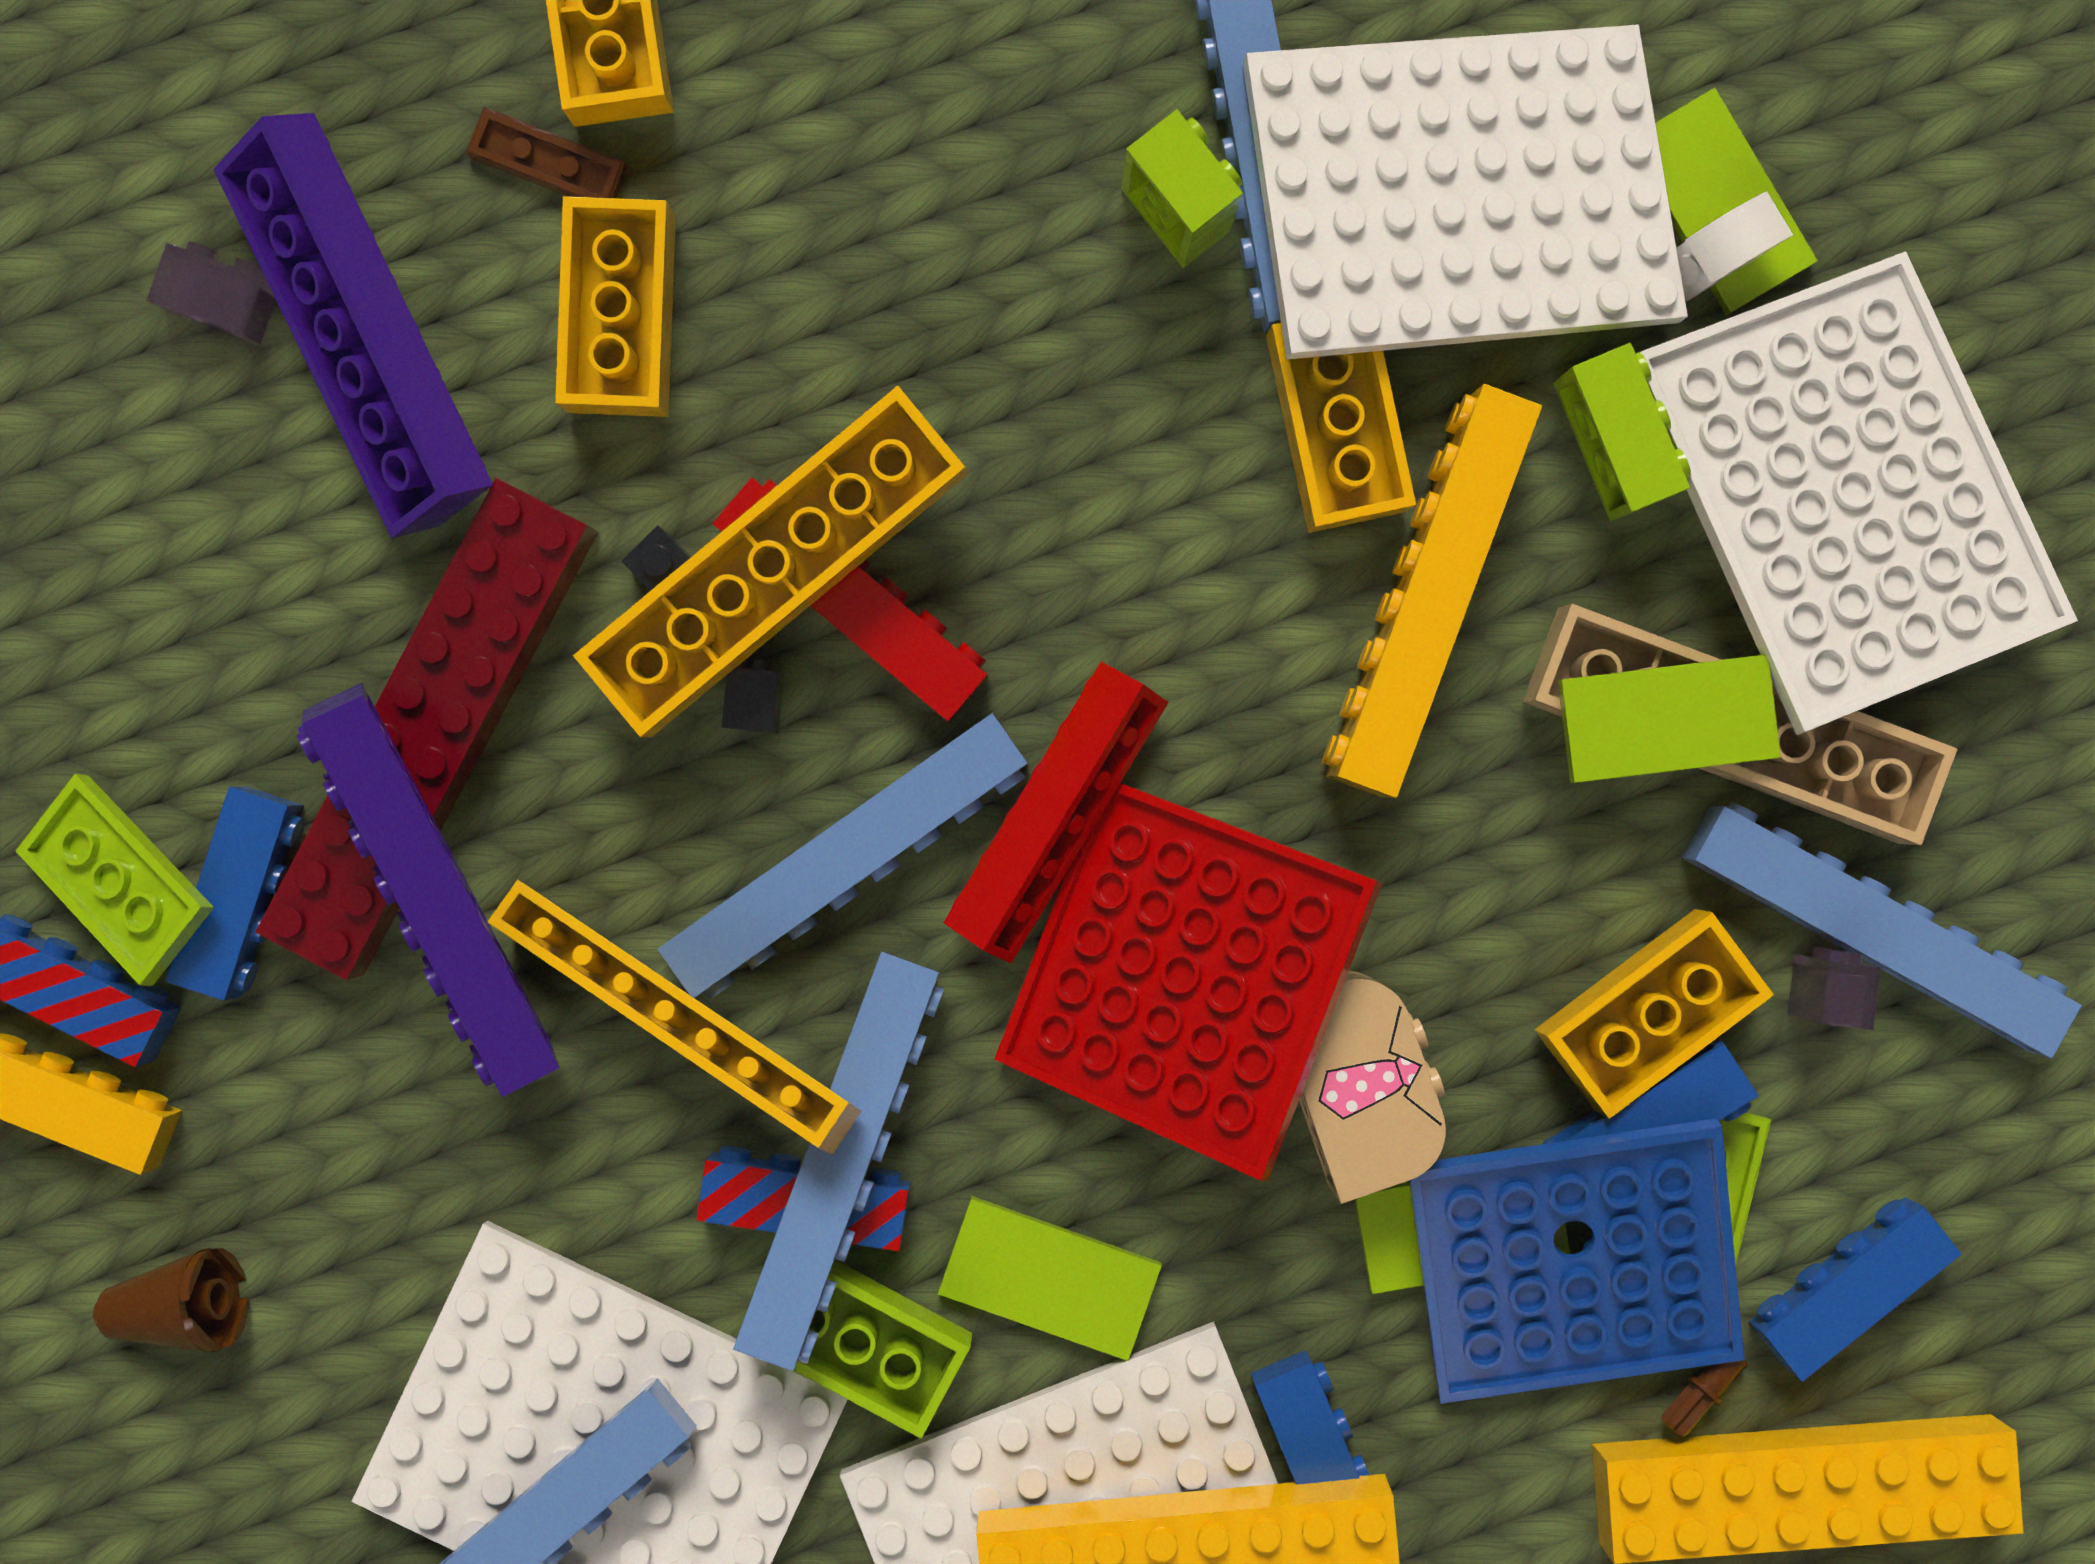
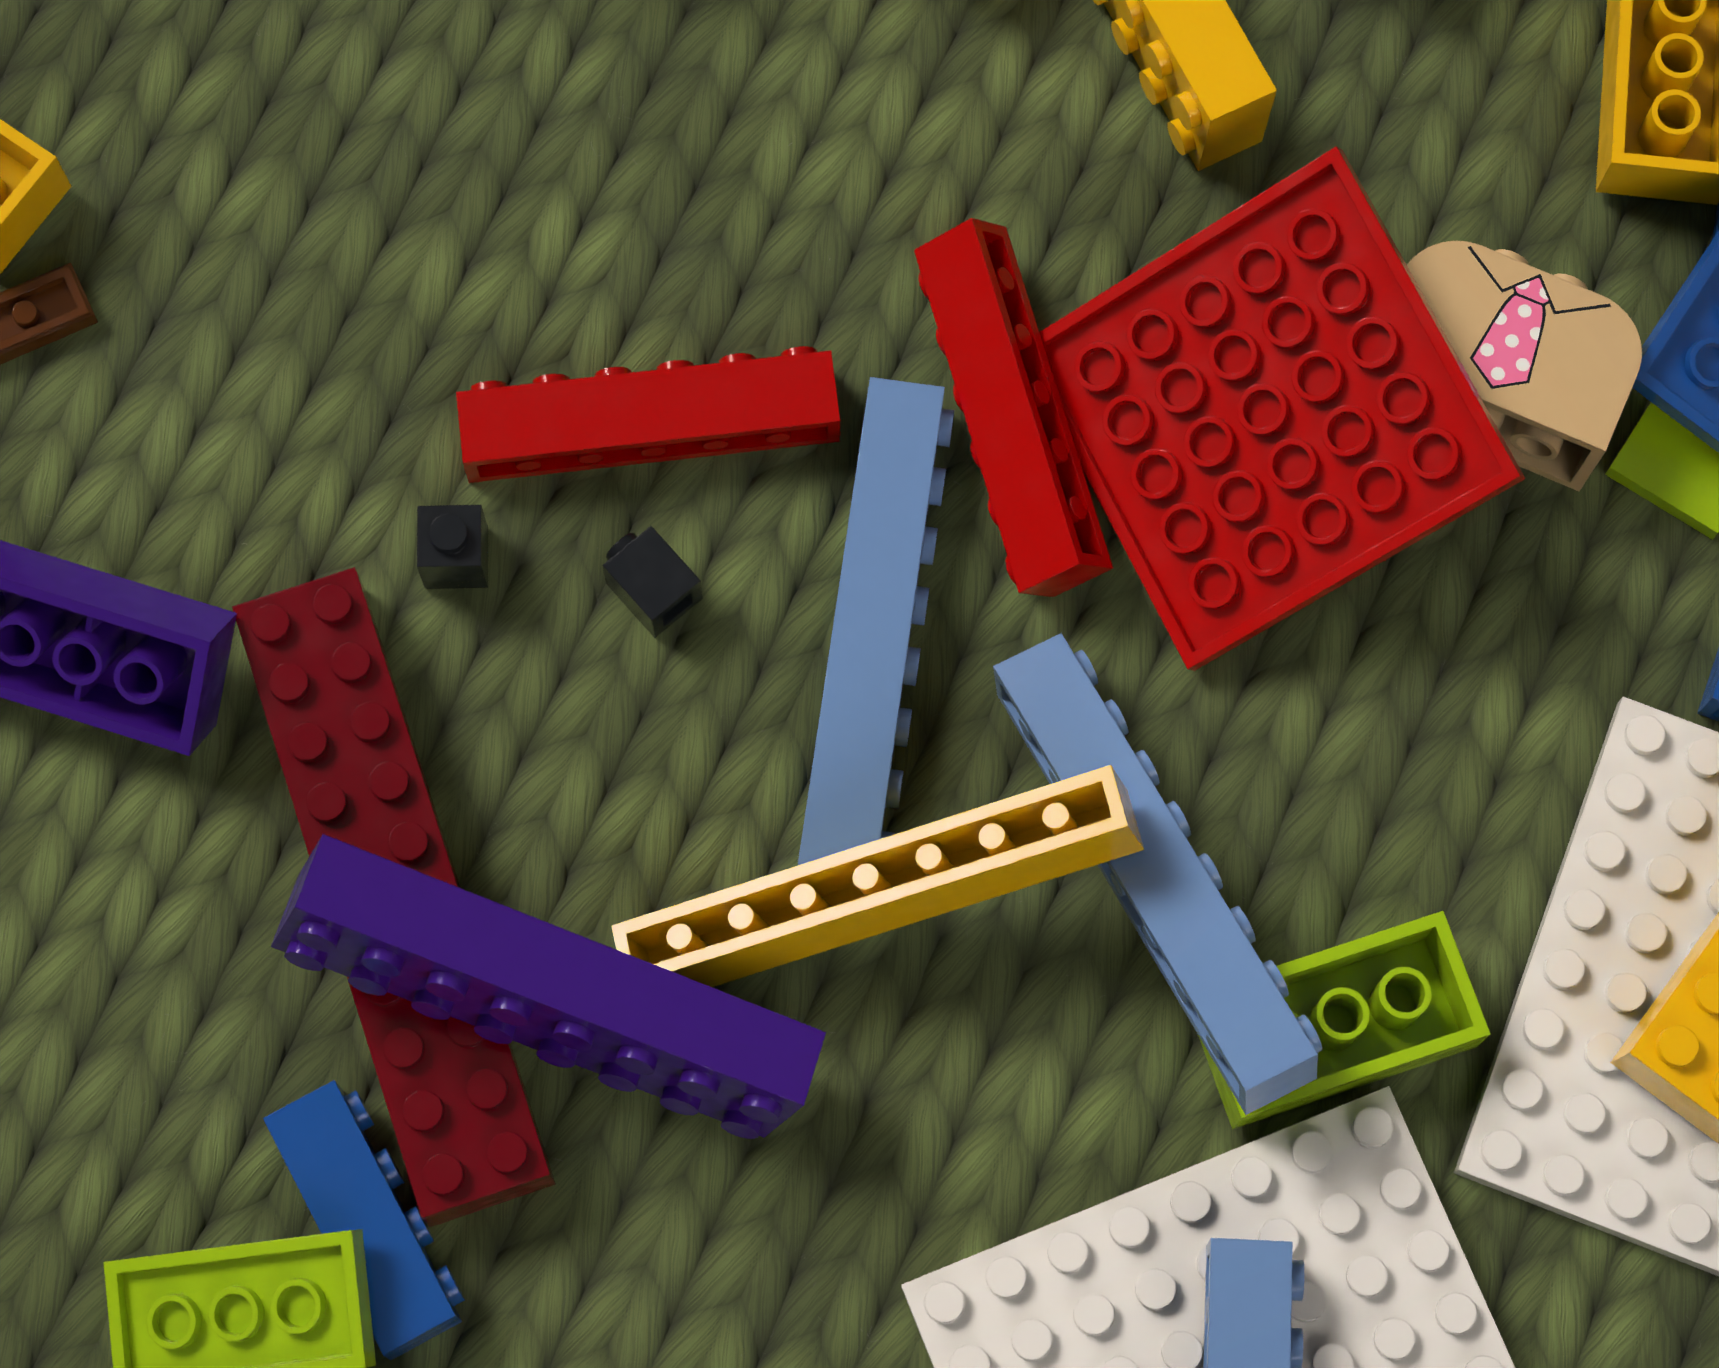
camera: 50 degrees left, 15 degrees down
(615, 306) = (190, 375): yellow brick -> none
(756, 1192) = (1122, 984): blue brick -> none
(771, 564) = (553, 429): yellow brick -> none
(1049, 1278) = (1441, 808): lime tile -> none

